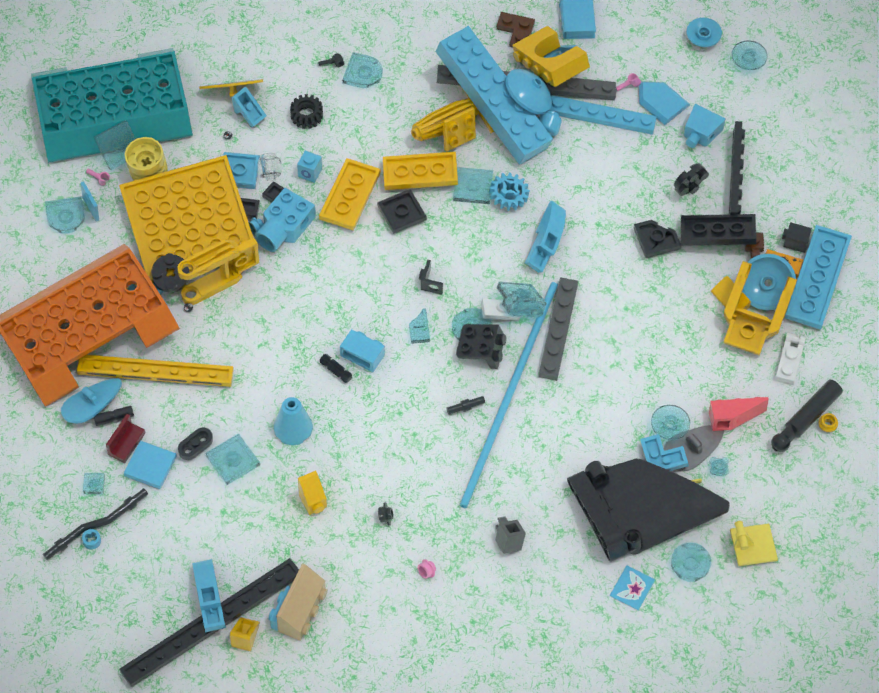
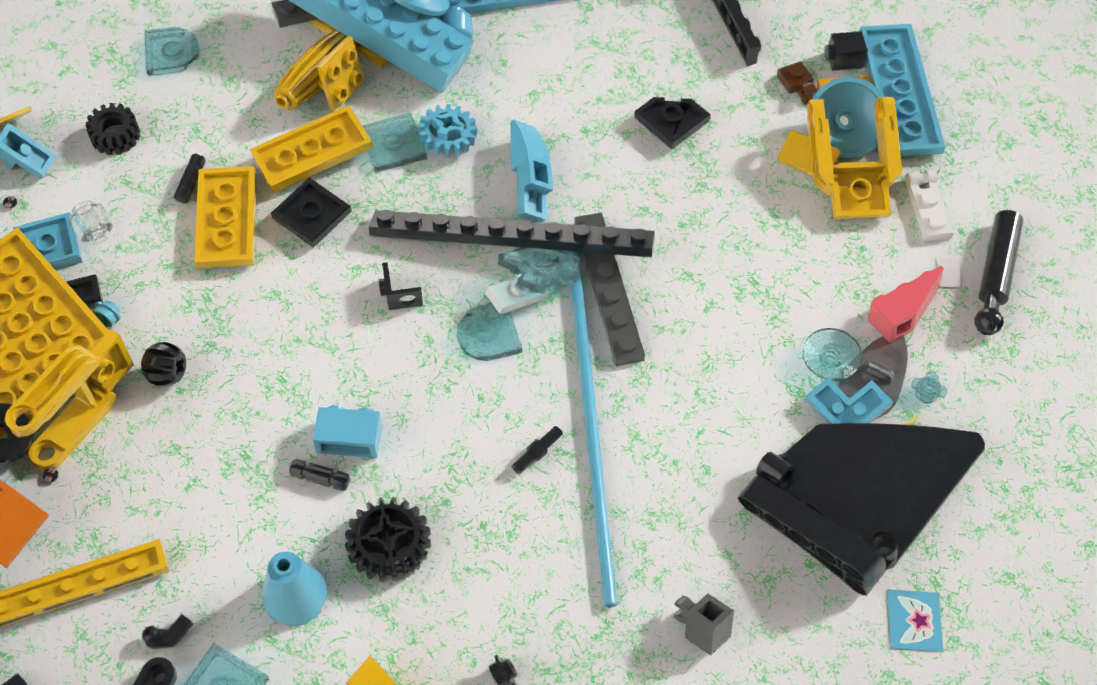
camera: 25 degrees left, 0 degrees up
(214, 420) = (166, 638): none -> black arm
(272, 191) = (115, 257): black tile -> none
(275, 269) = (163, 364): none -> black piece
(285, 220) = (146, 288): medium azure brick -> none
(309, 166) = (150, 200): medium azure brick -> none
(336, 58) = (125, 47): black hand -> none
(339, 161) = (189, 178): none -> black axle
(365, 425) = (375, 540): none -> black gear
(419, 328) = (415, 366): clear light blue tile -> none
(482, 342) = (515, 351): black bracket -> none
(515, 272) = (512, 233): none -> black plate
(690, 181) = (676, 28): black plate -> none
(690, 562) = (973, 544): clear light blue tile -> none
(718, 229) = (747, 77): black plate -> none
(753, 544) = (1040, 480): light yellow plate -> none
(778, 404) = (951, 274): none -> white sticker
(828, 417) = (1030, 263): yellow plate -> none

